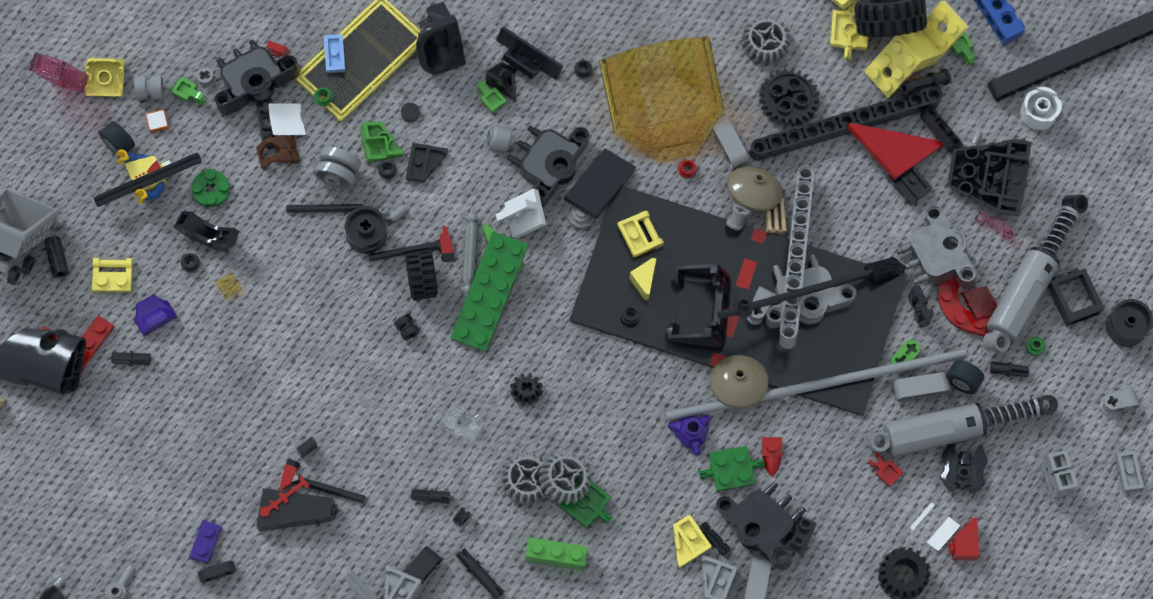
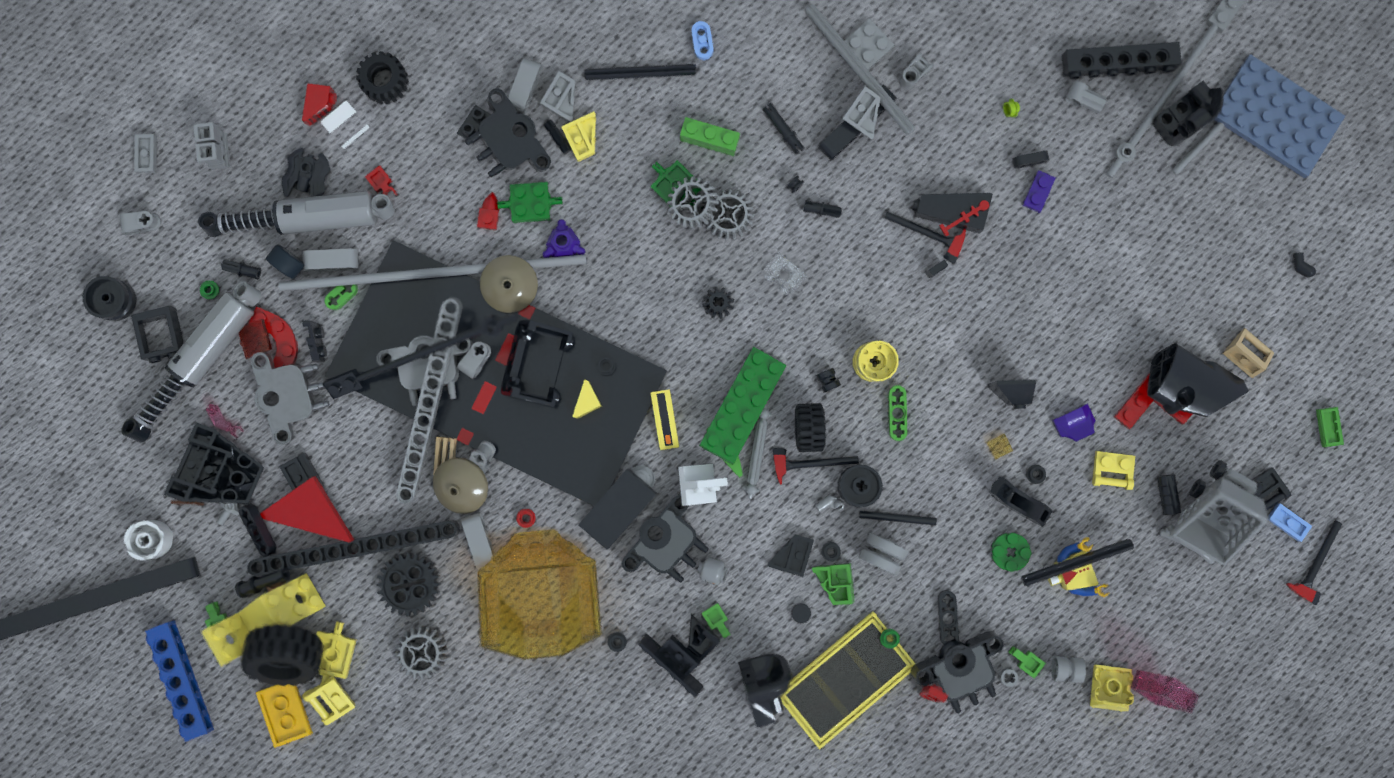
camera: 170 degrees left, 15 degrees up
(116, 138) = (1104, 613): black wheel -> none
(131, 358) = (1100, 380): black axle -> none
(157, 121) = (1060, 633): white tile -> none
(220, 335) = (1014, 392): none -> black slope
(286, 119) = (929, 618): white sticker -> none
(286, 150) = (932, 587): reddish brown piece -> none
(330, 319) = (903, 398): none -> bright green beam
(334, 53) = (874, 685): light blue plate -> none
(361, 336) = (886, 360): none -> light yellow wheel
(565, 273) = (664, 419): none -> light yellow slope
(635, 237) = (590, 448): light yellow plate -> none

